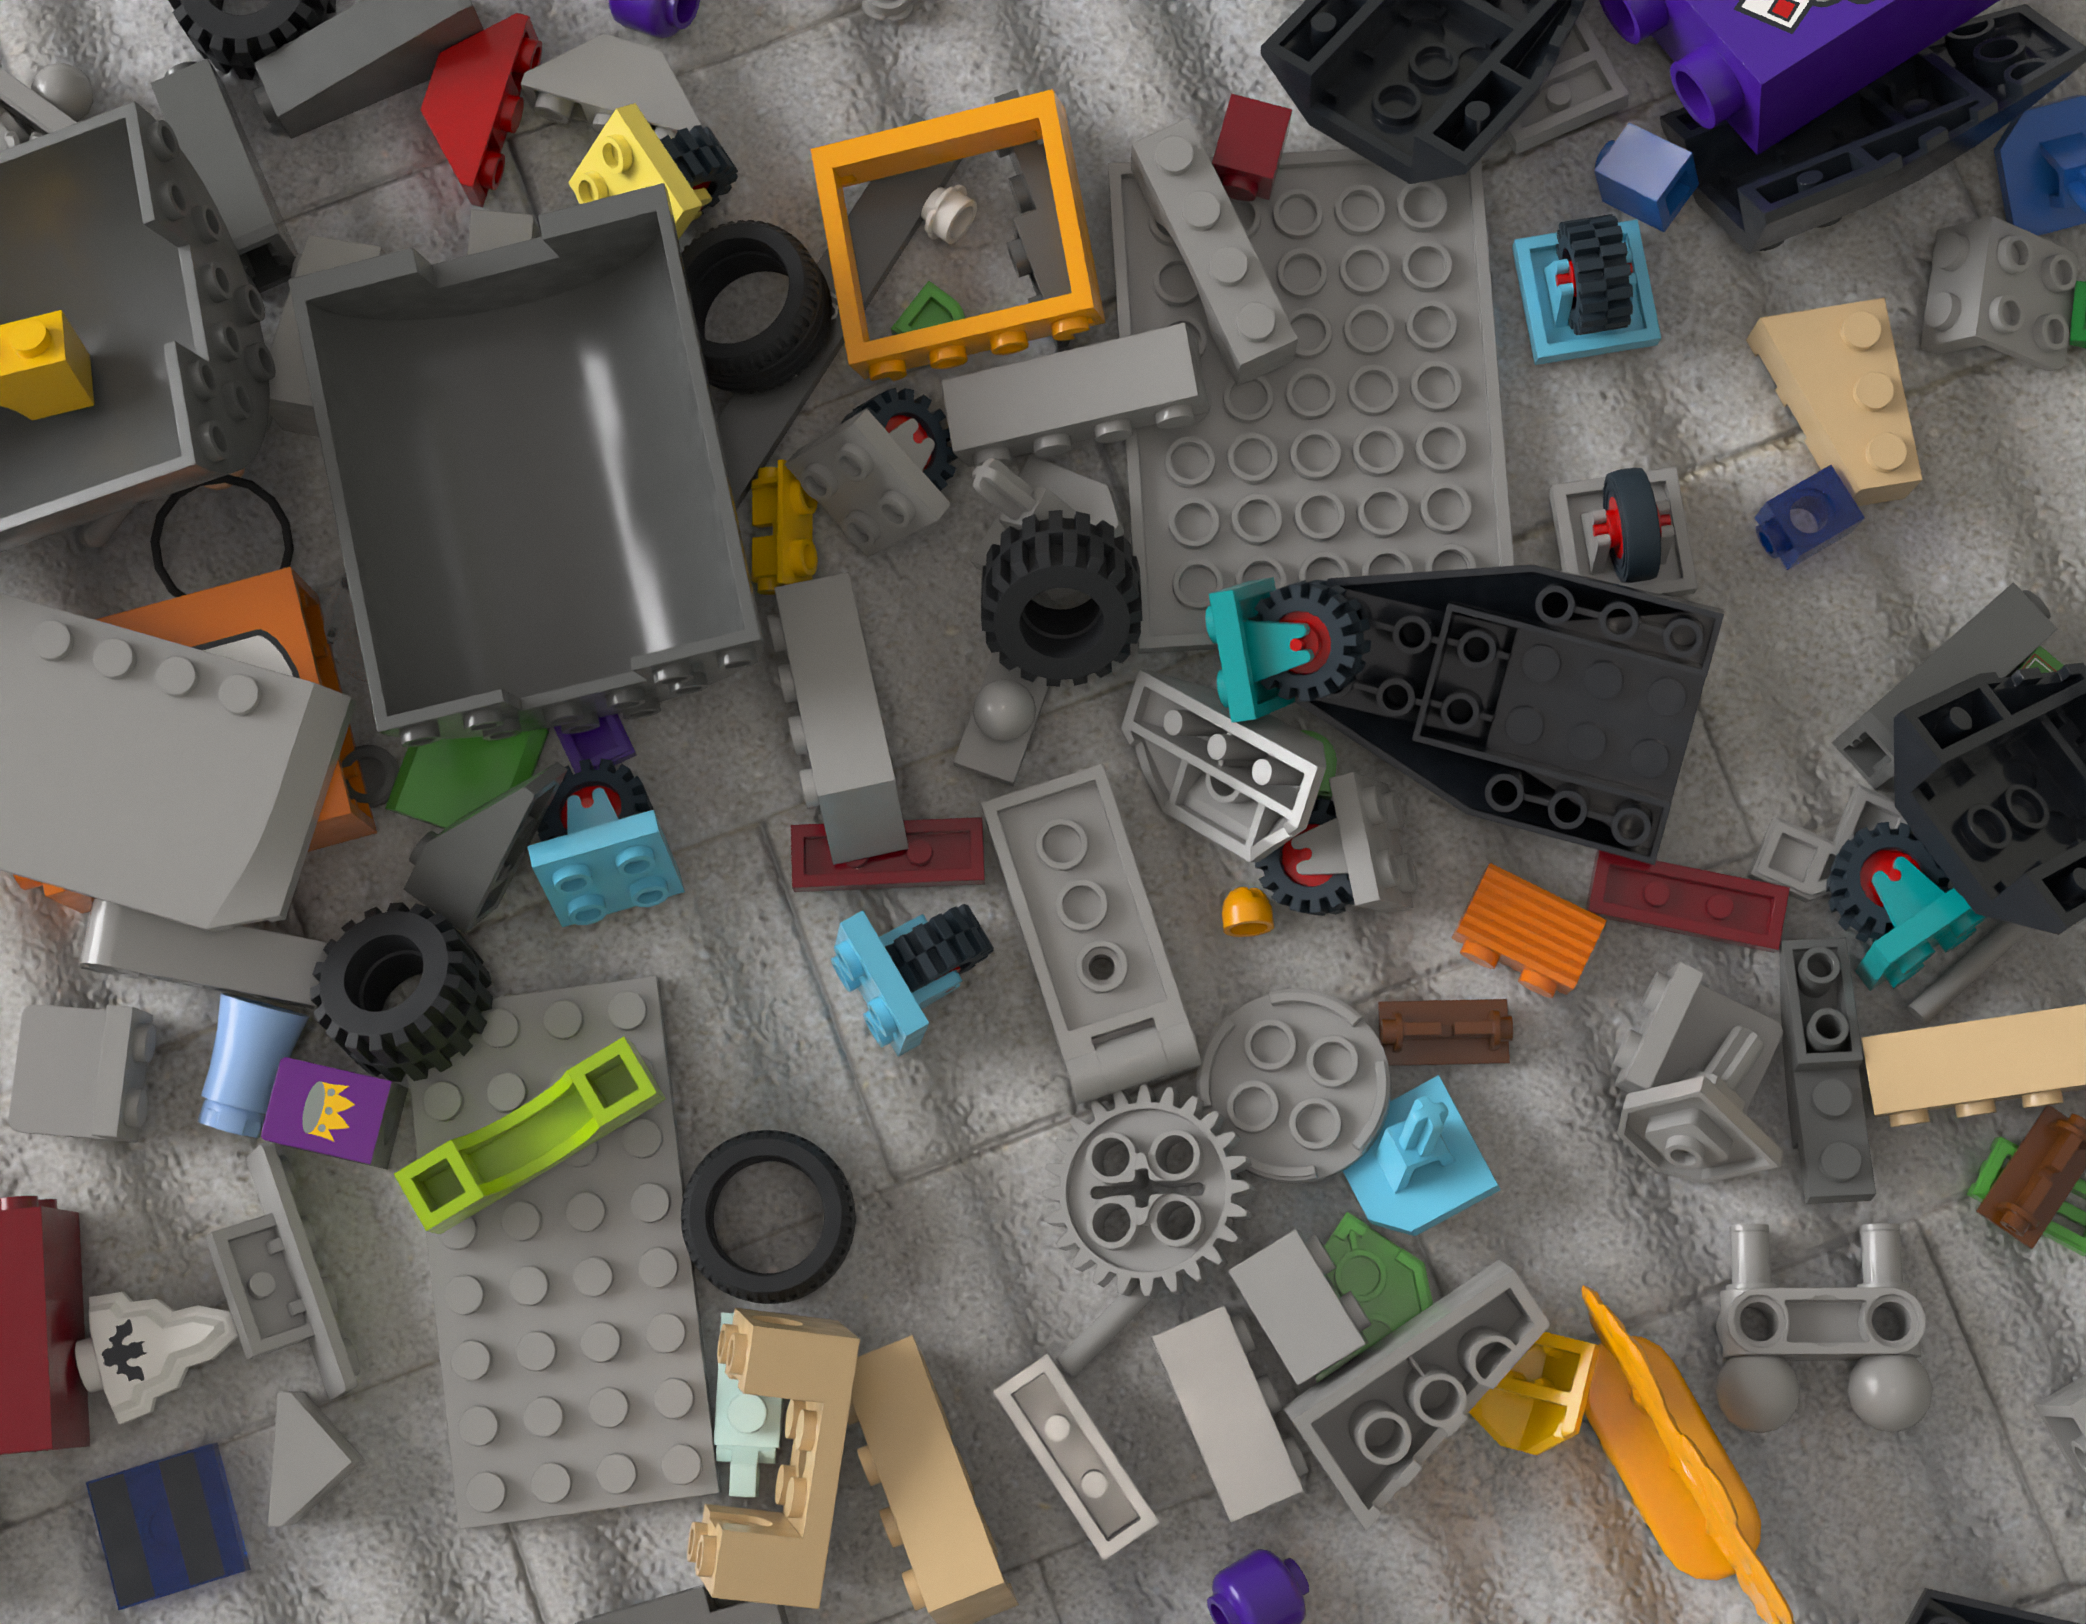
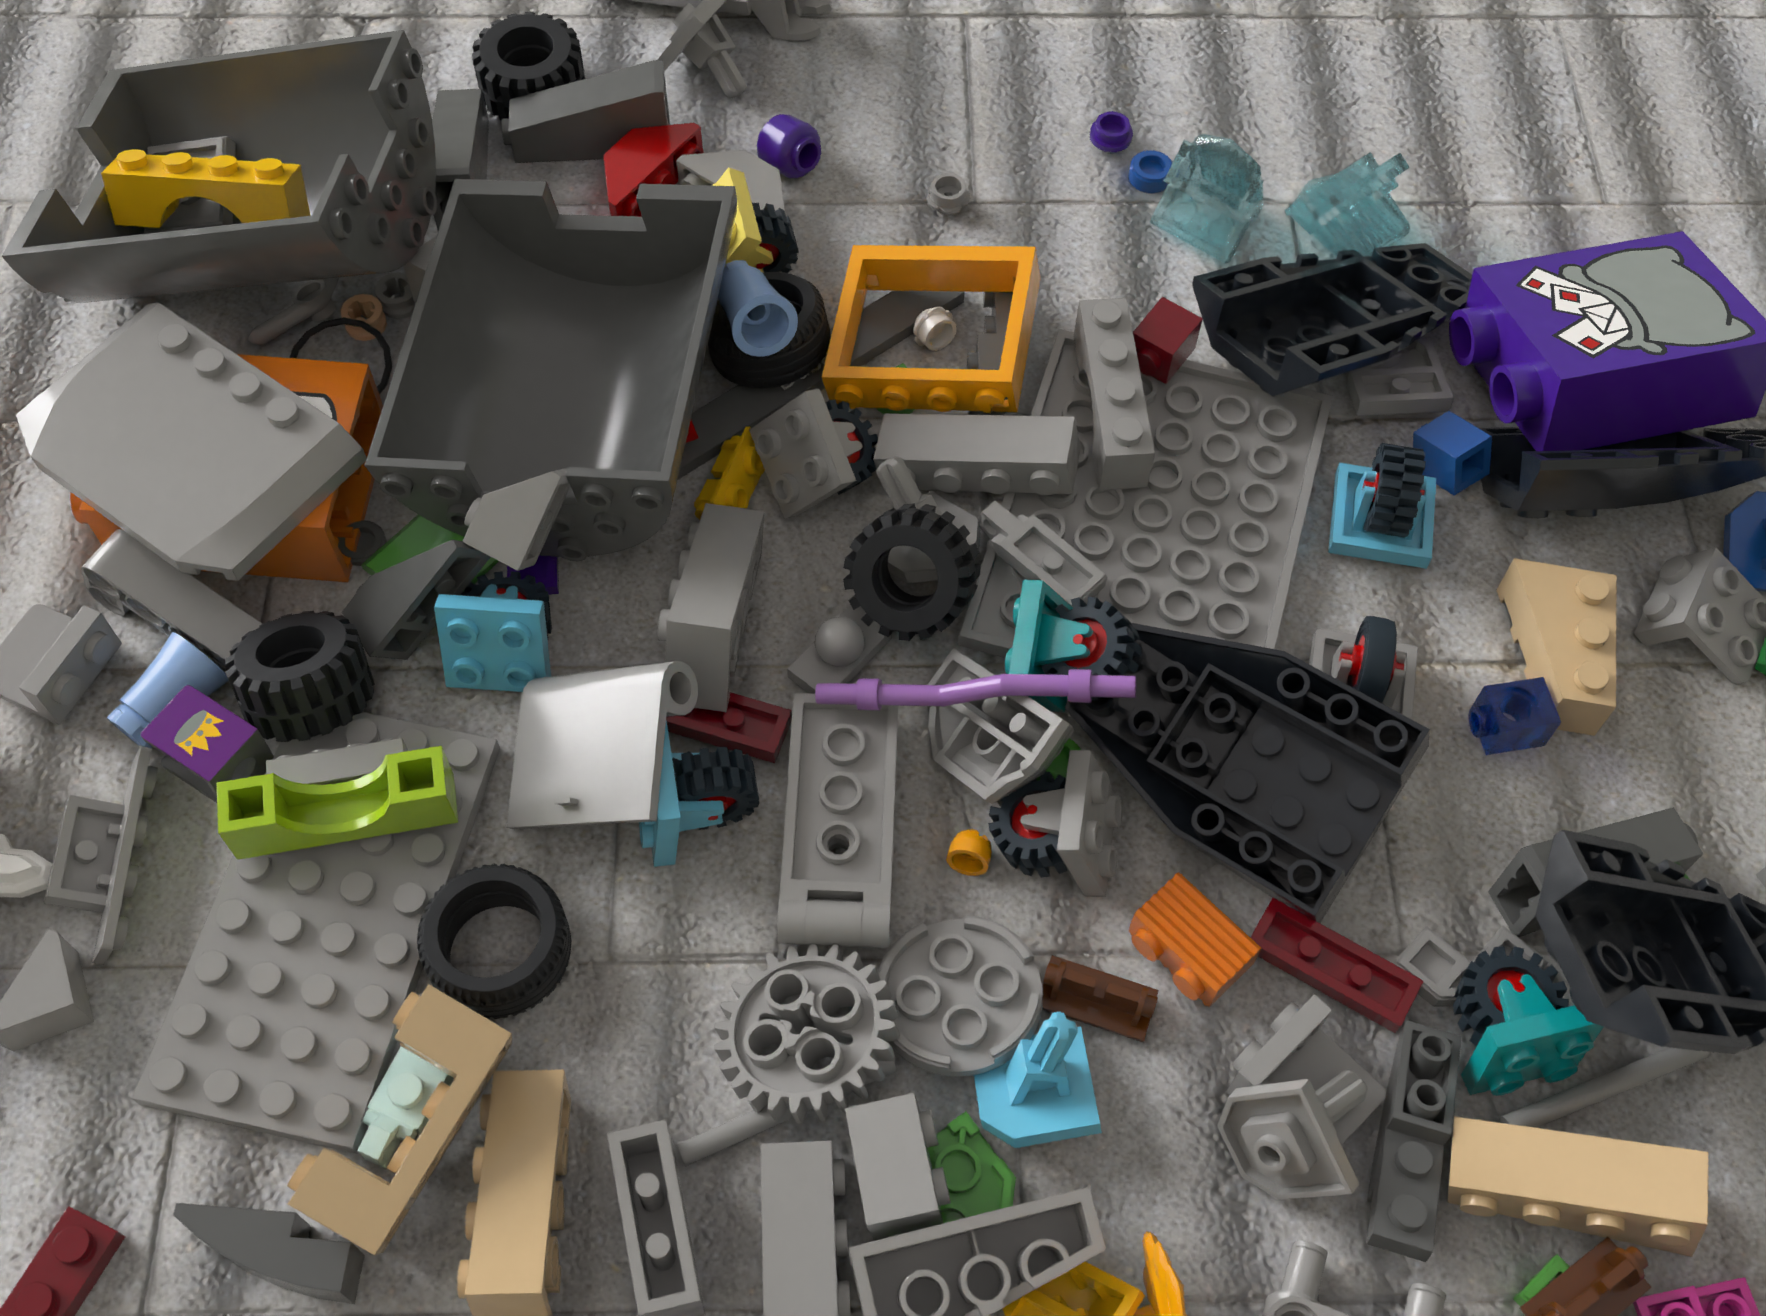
camera: 15 degrees right, 20 degrees down
(503, 1089) = (335, 765): none -> light grey piece
(583, 725) = (516, 519): none -> light grey slope
(738, 316) = (757, 314): none -> light blue plant
(785, 957) = (595, 745): none -> door
(1204, 516) = (1041, 553): none -> light grey hinge
(1317, 708) = (1078, 686): none -> medium lavender bar

